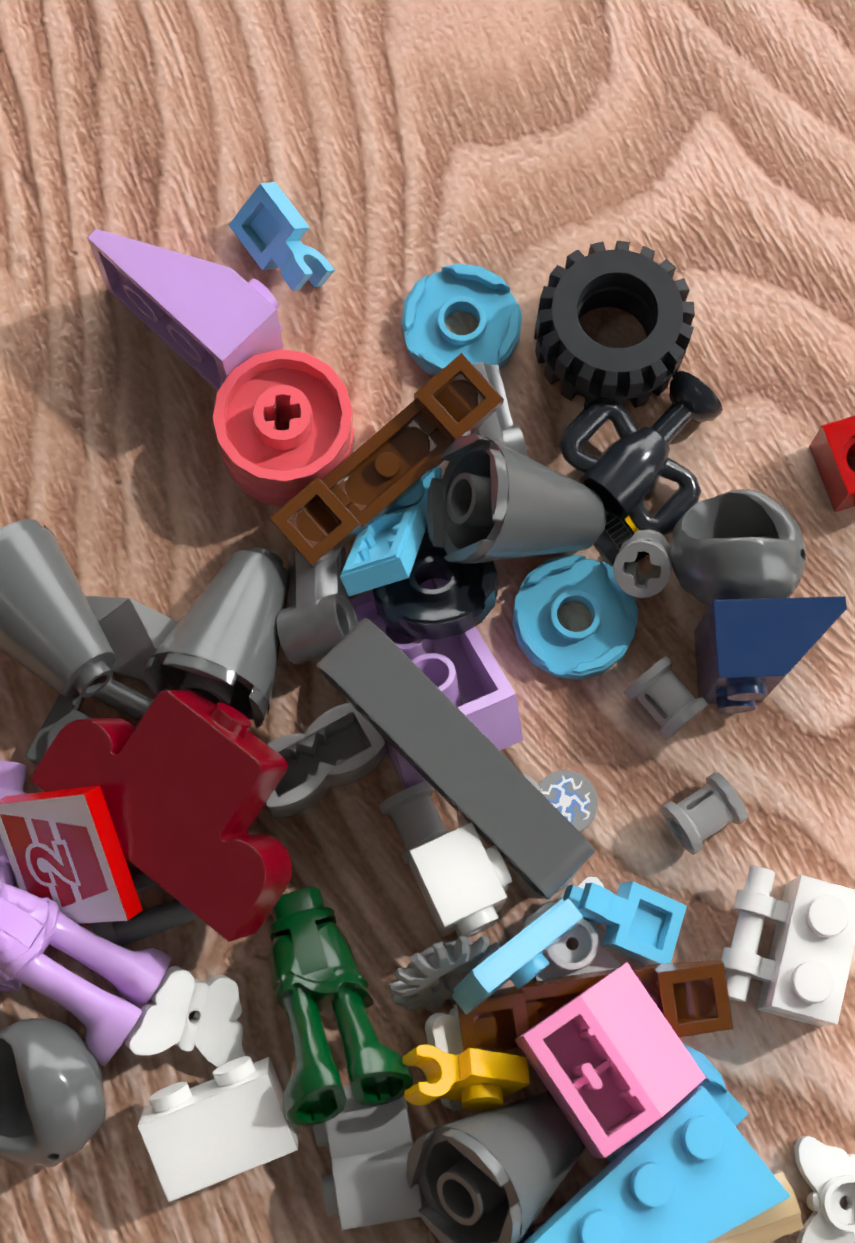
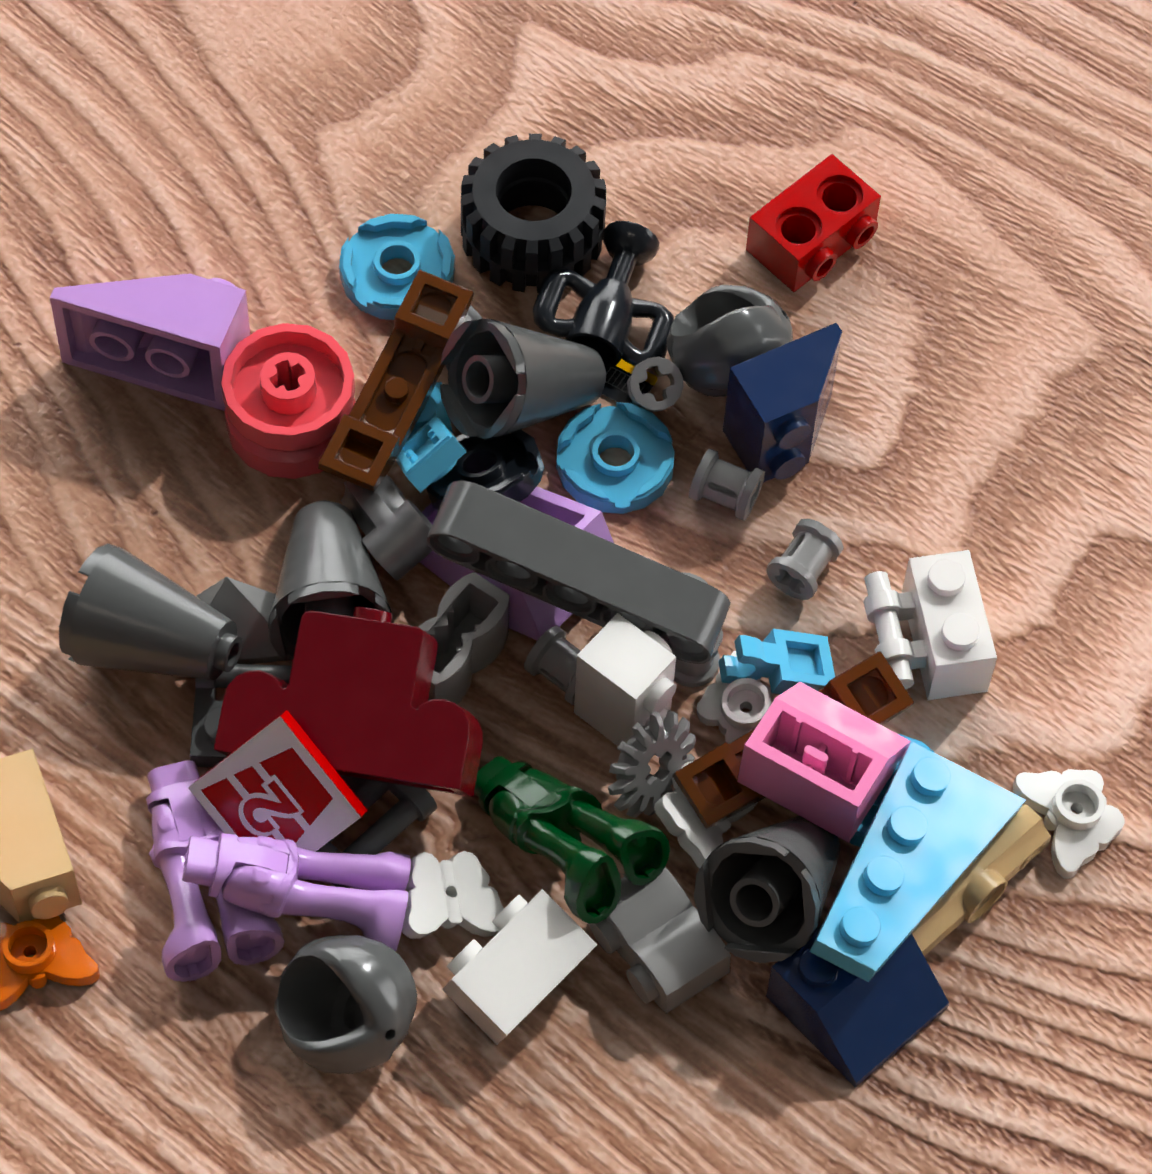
camera: 25 degrees left, 15 degrees down
(272, 235) = (197, 248): medium azure plate -> none
(473, 1077) = (712, 820): yellow plate -> none
(517, 959) = (707, 711): plate -> none

